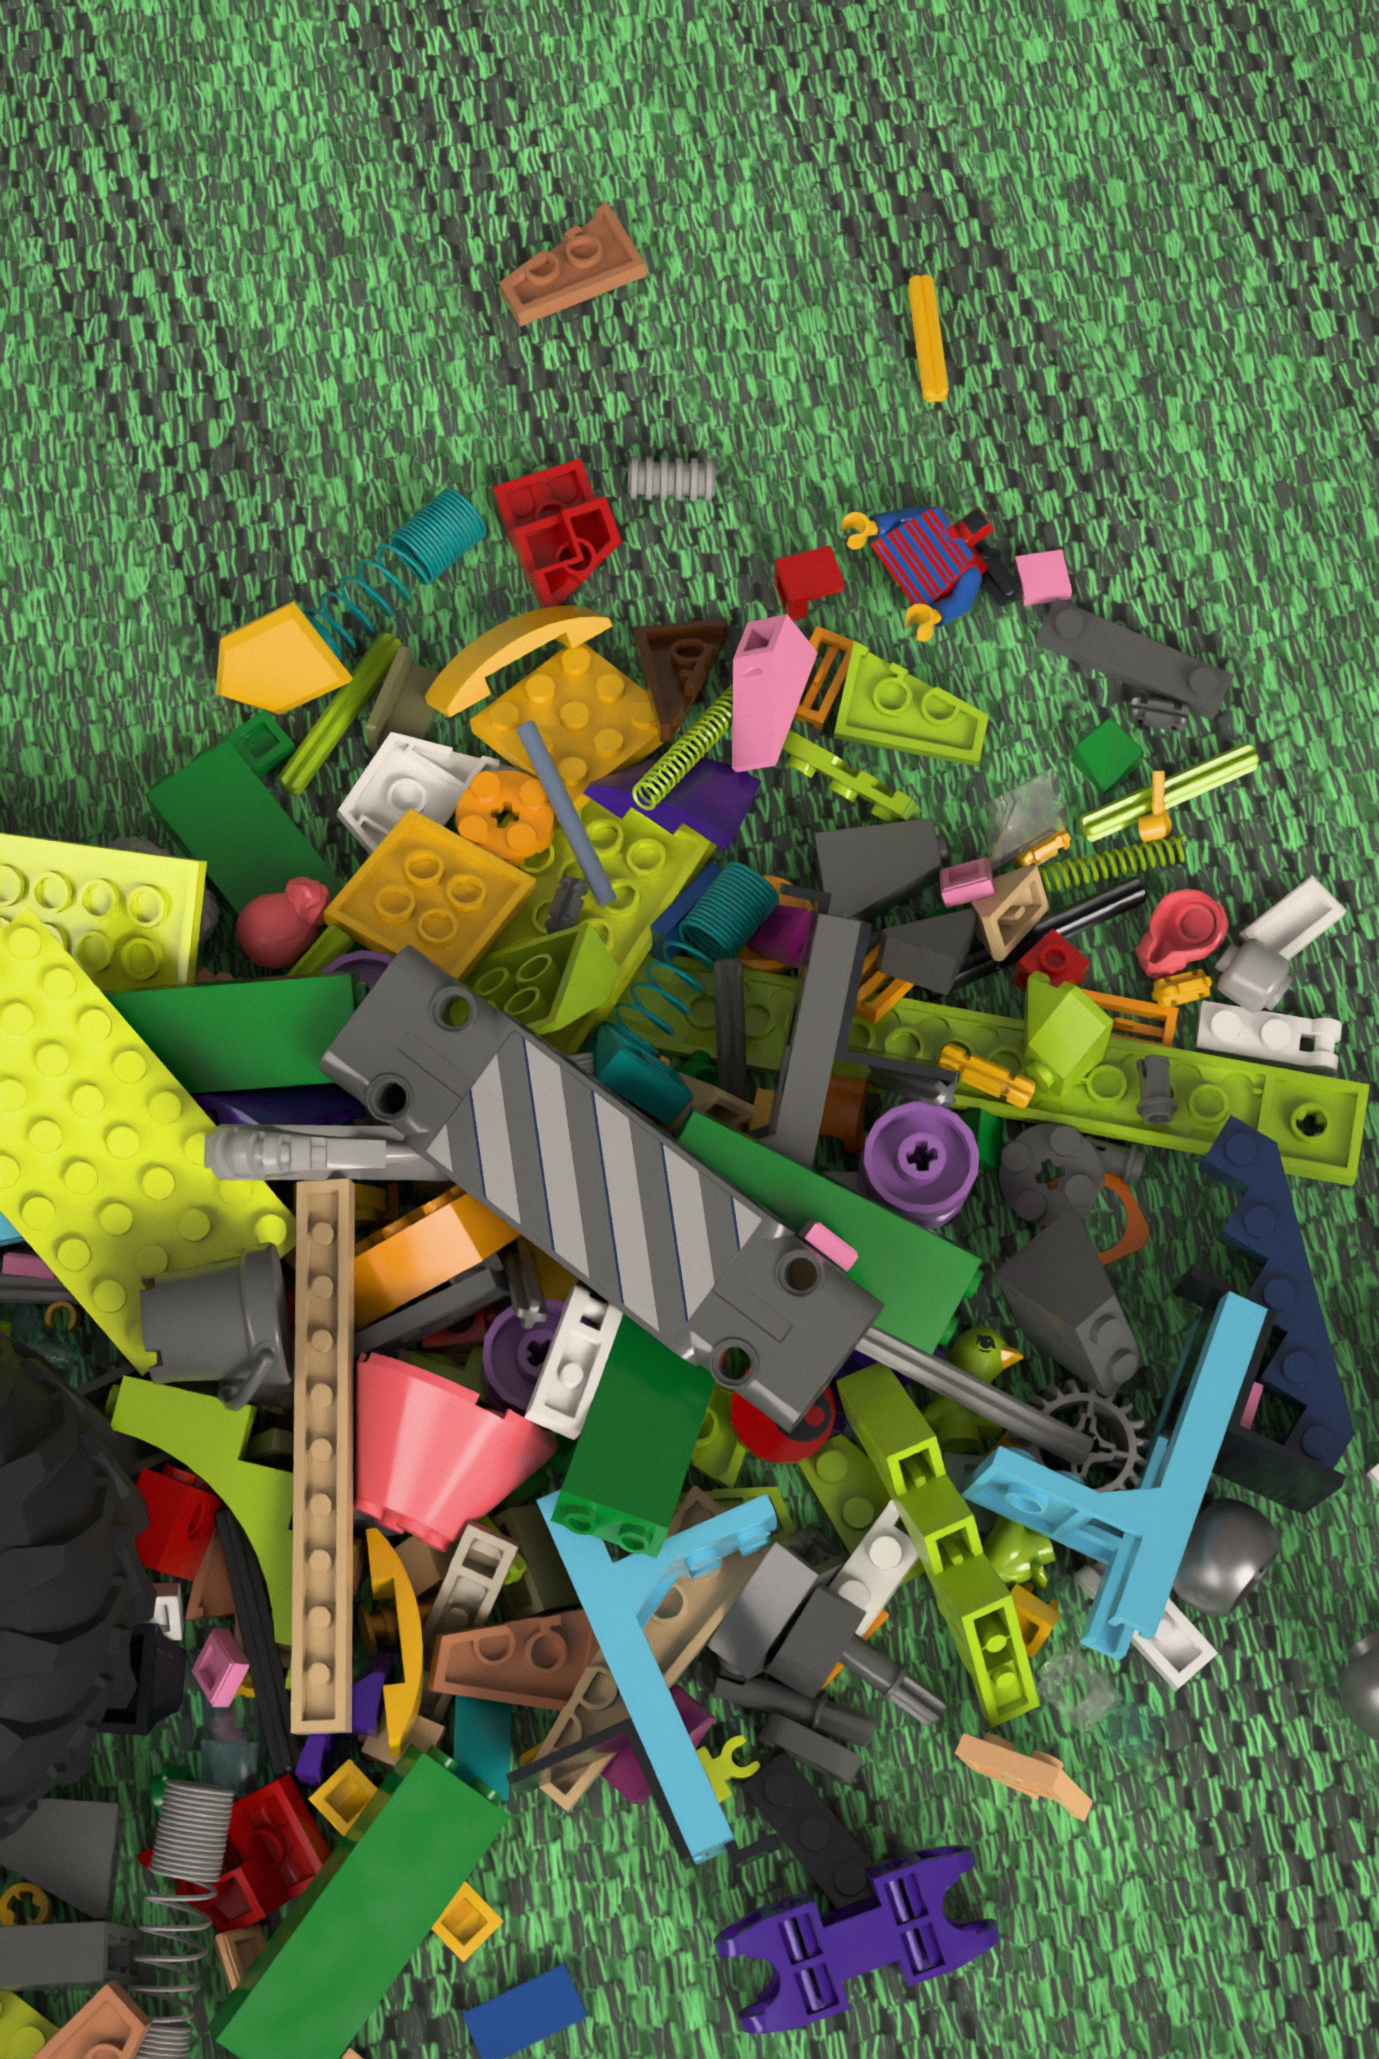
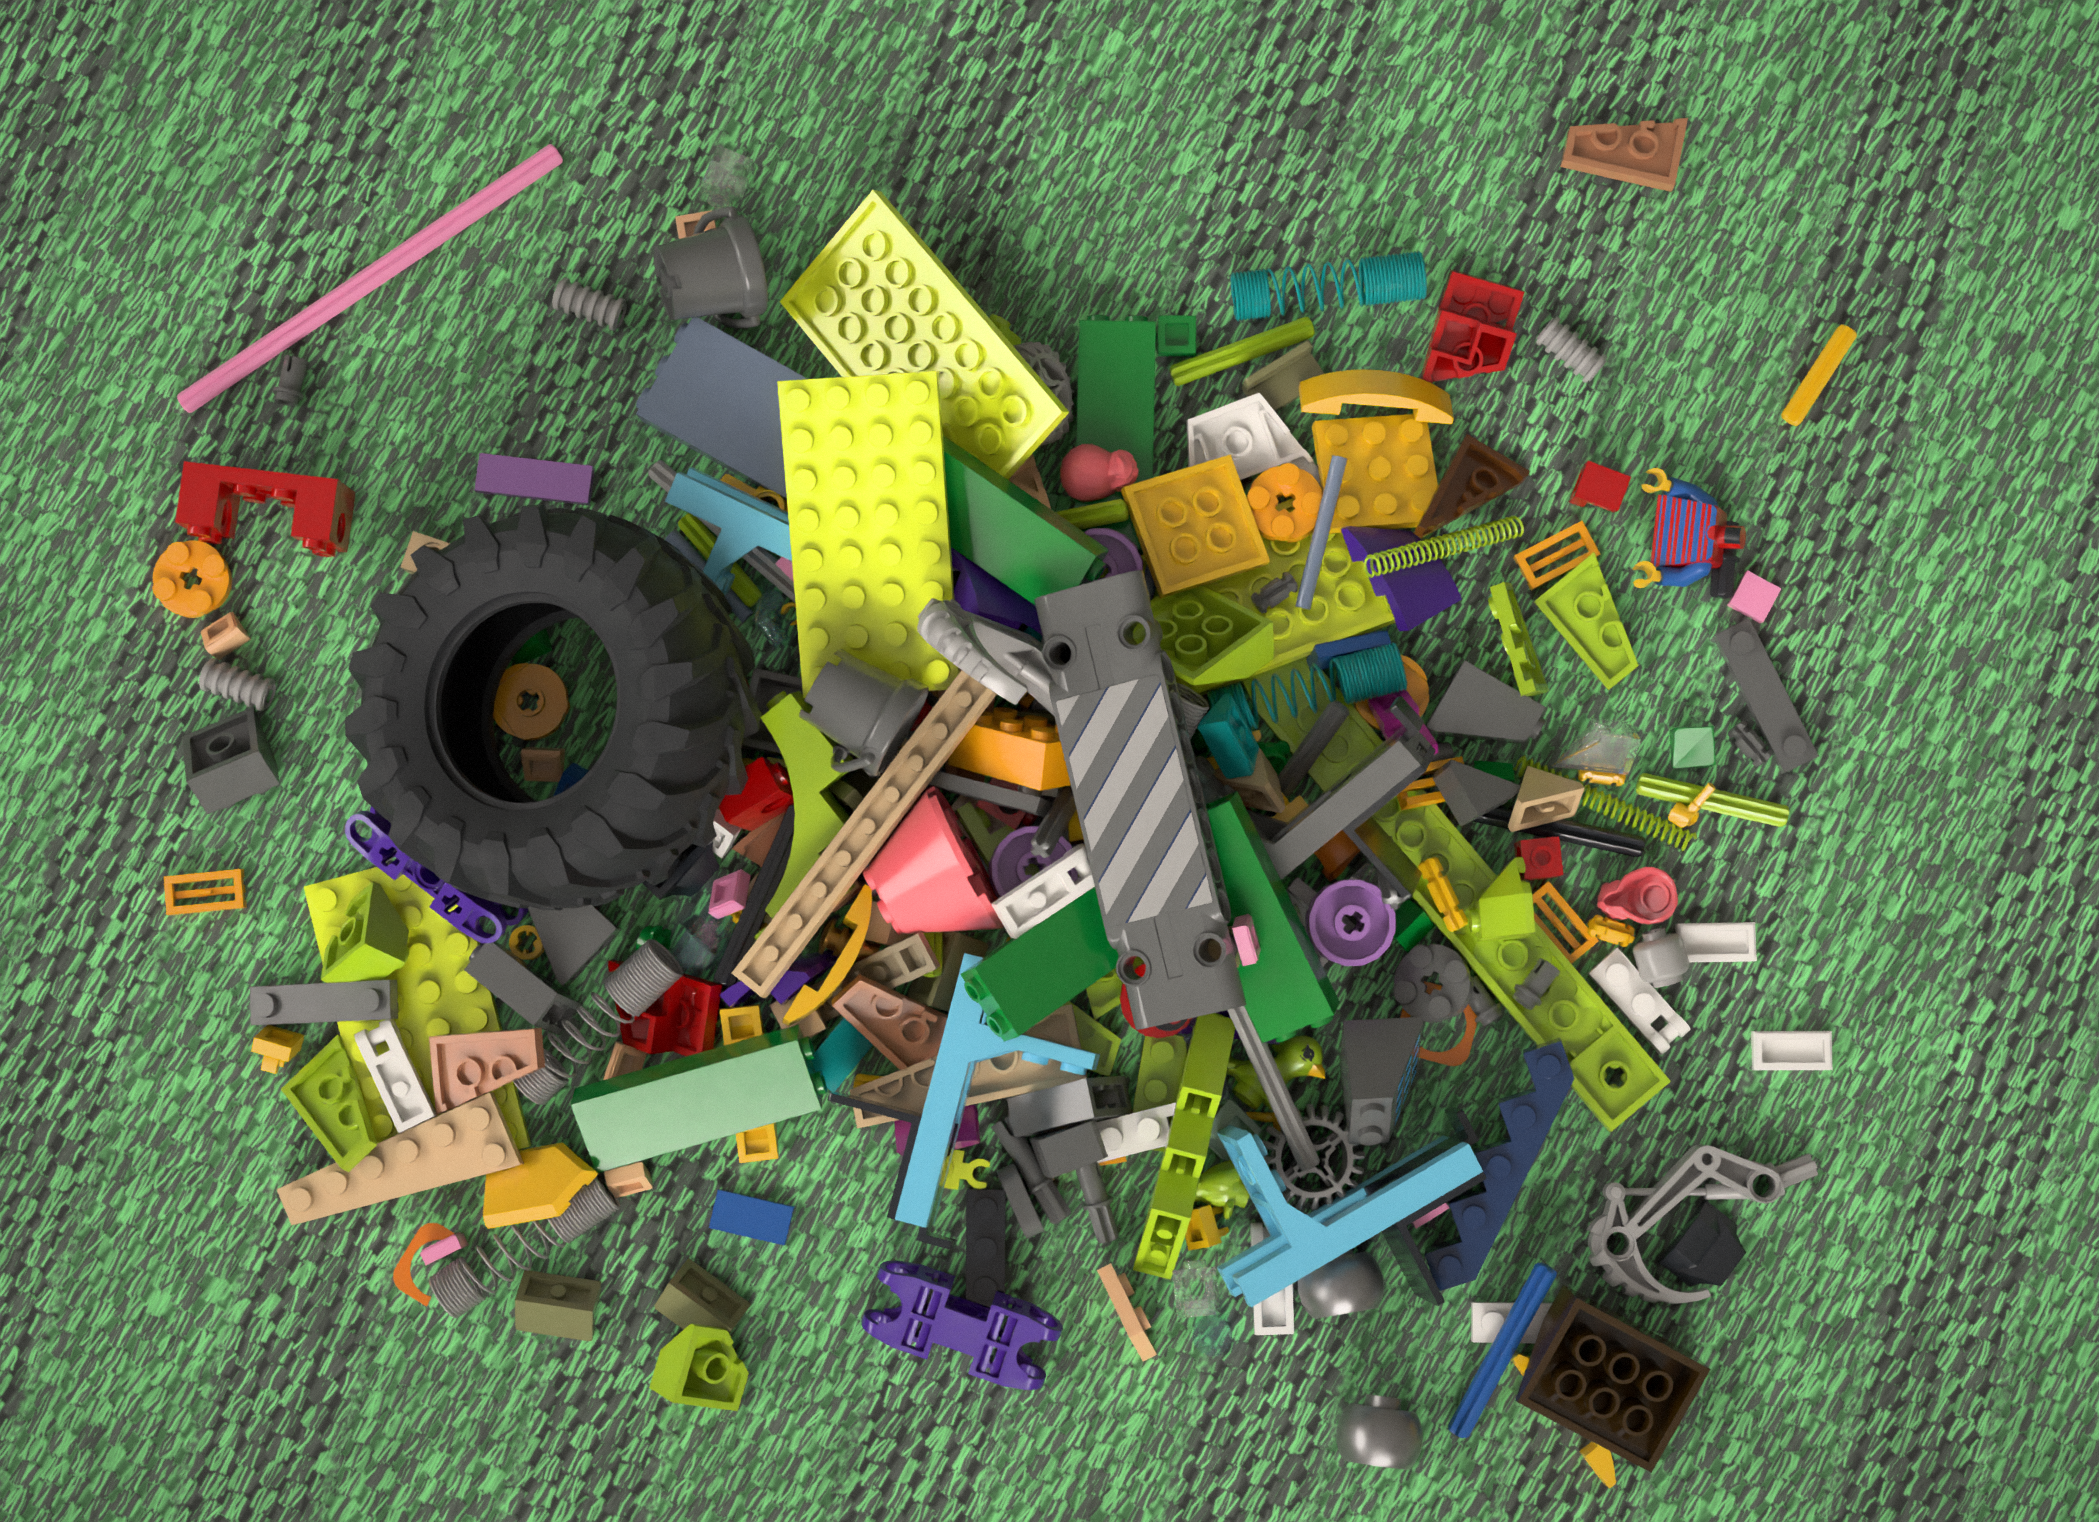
camera: 45 degrees right, 15 degrees up
(277, 662) = (1223, 294): yellow tile -> none
(767, 688) = (1510, 545): bright pink slope -> none
(966, 882) = (1532, 765): bright pink tile -> none

